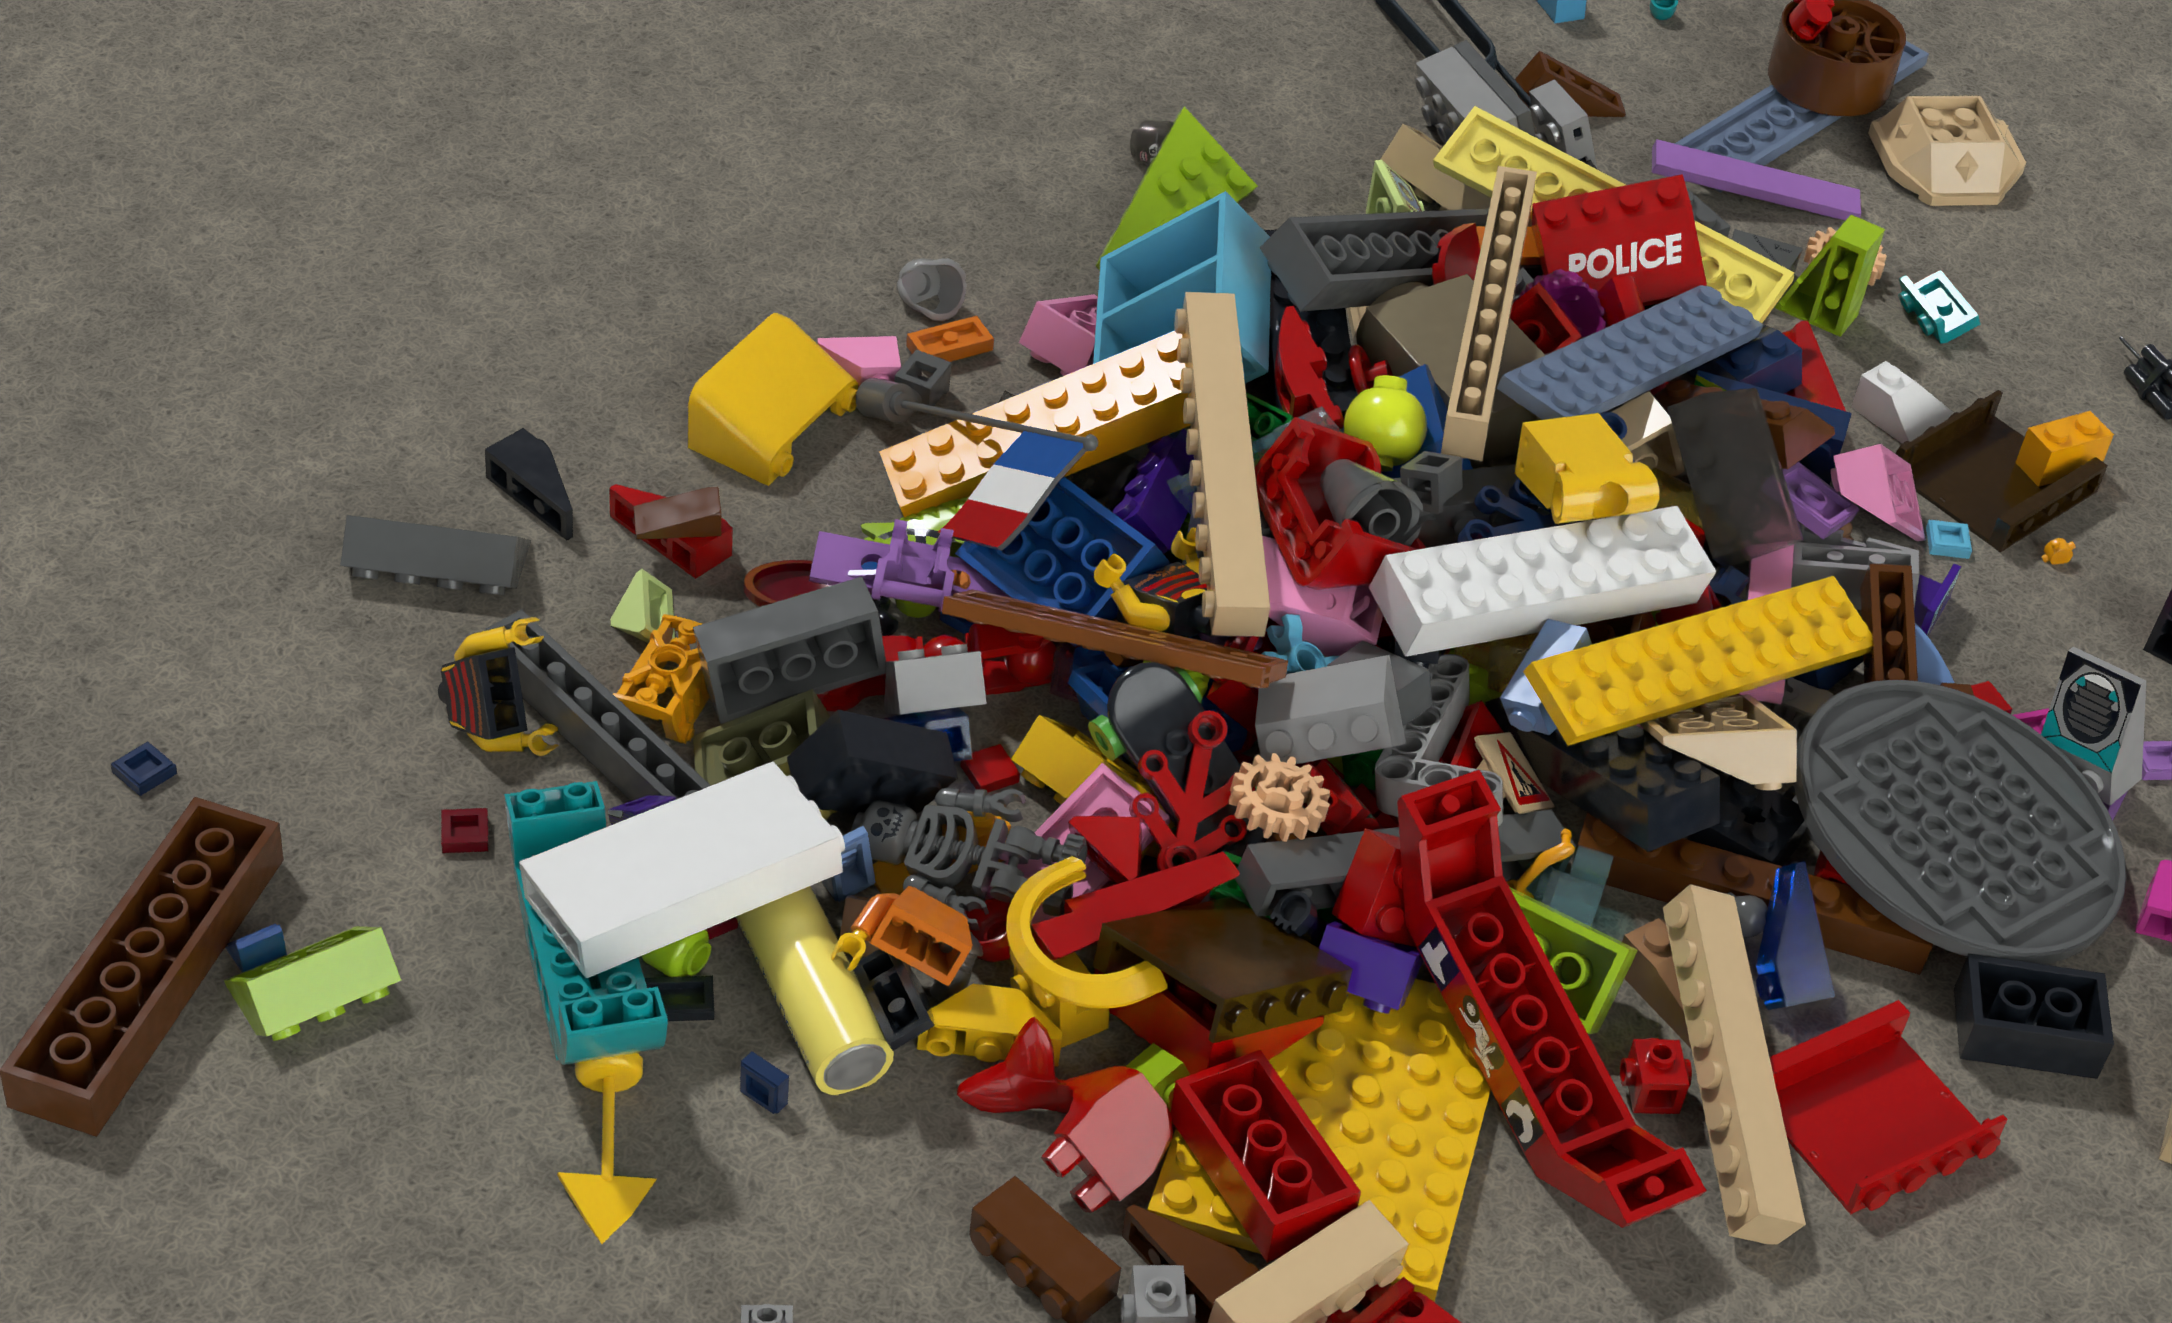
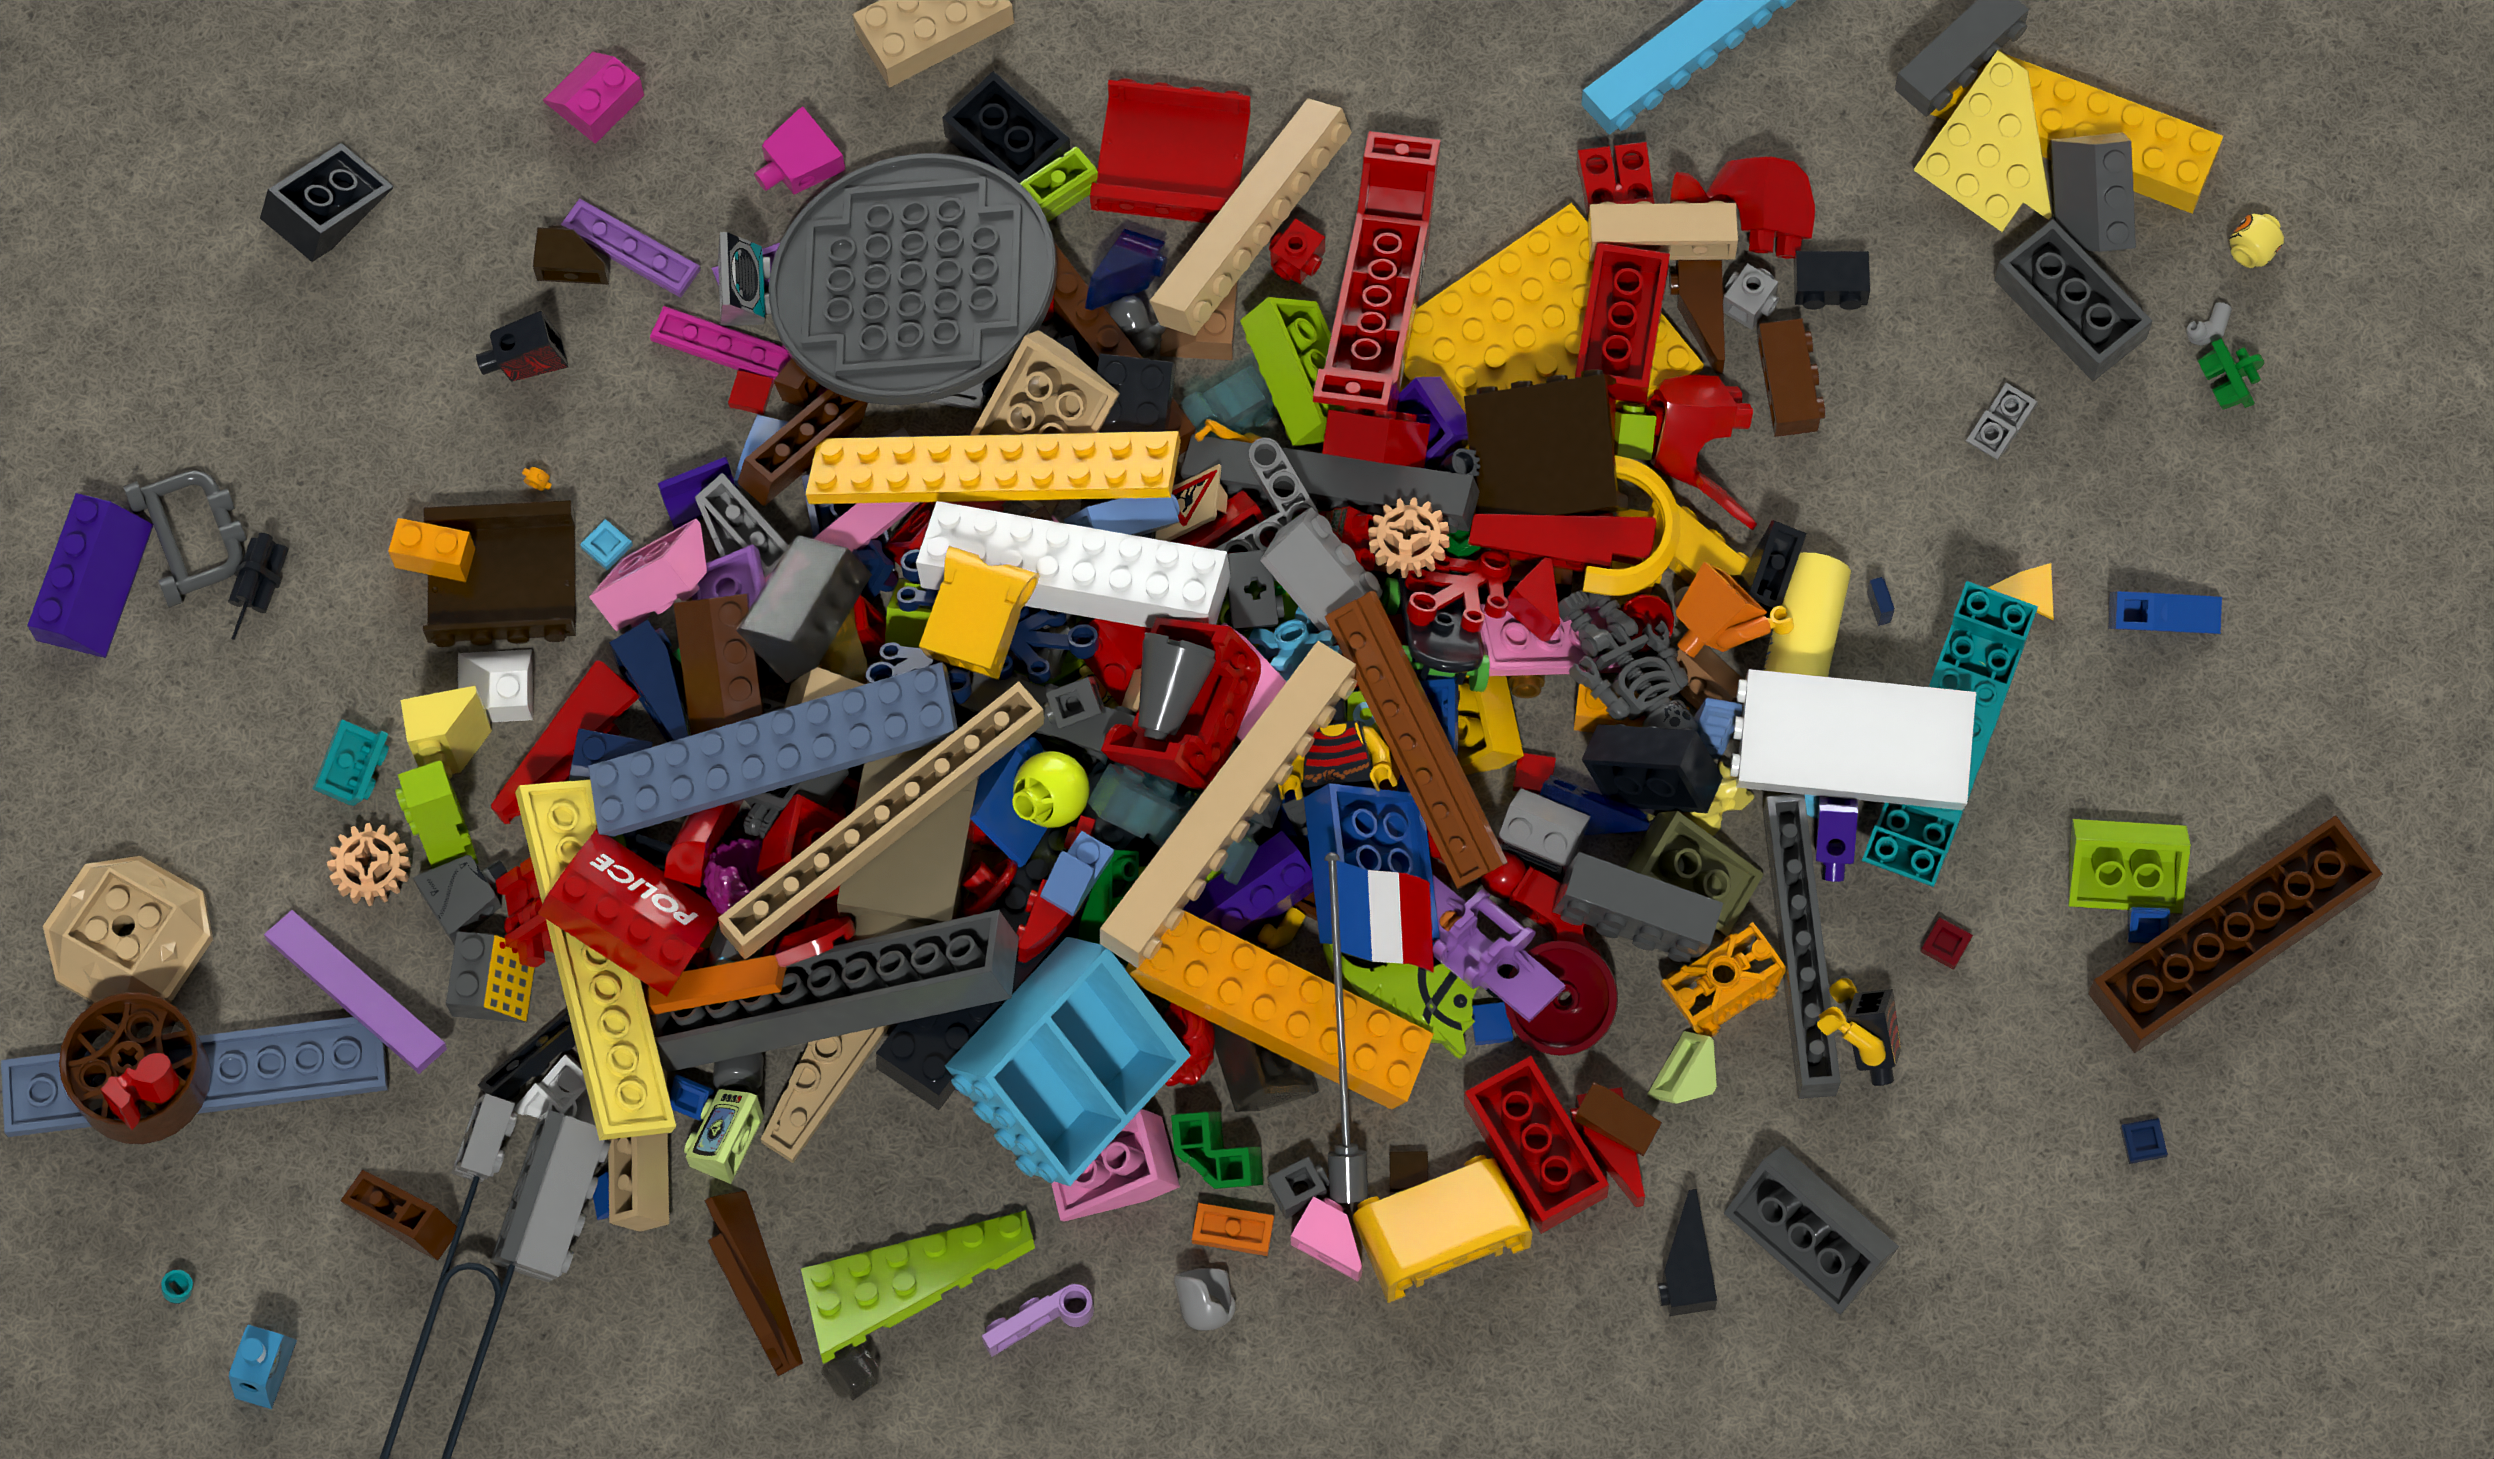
camera: 135 degrees left, 25 degrees up
(436, 1228) = (2165, 612): none -> blue slope
(761, 490) = (1536, 1144): none -> red brick
(838, 443) = (1407, 1169): none -> dark brown tile
(991, 366) = (1200, 1144): none -> green brick
(1035, 239) = (1036, 1314): none -> lavender plate
(1295, 165) = (751, 1277): none -> reddish brown wedge
(1300, 371) = (1076, 873): none -> medium blue slope
(1899, 311) = (446, 727): none -> light yellow slope
(1936, 995) = (1062, 183): none -> lime brick

